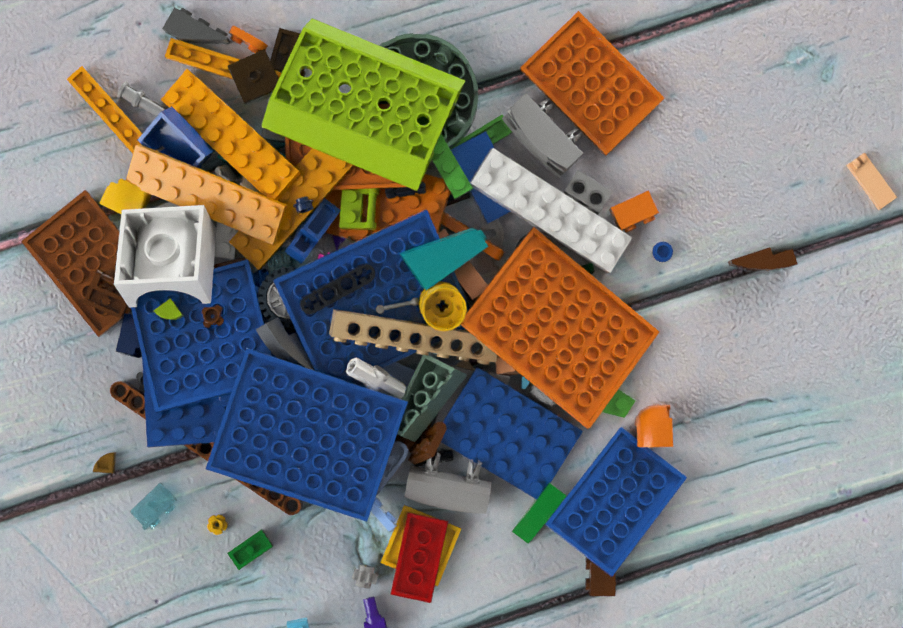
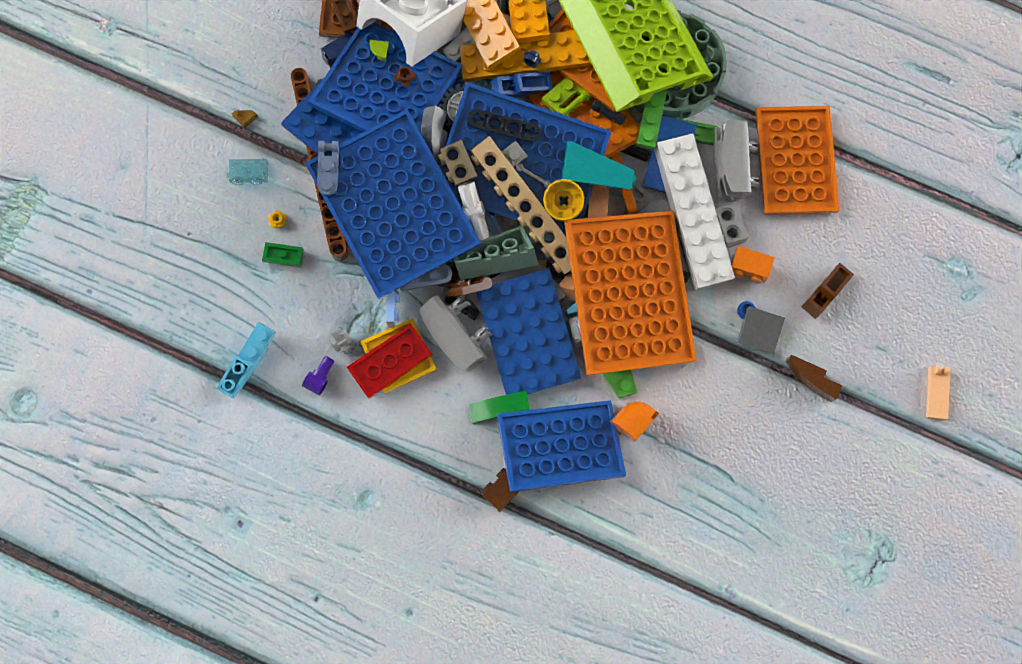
camera: 35 degrees right, 10 degrees down
(229, 456) = (328, 168): none -> sand blue plate
(331, 350) = (463, 161): none -> dark tan brick
(366, 303) = (514, 153): none -> light grey plate
(688, 259) = (760, 330): none -> dark grey tile
(713, 175) = (827, 290): none -> reddish brown slope

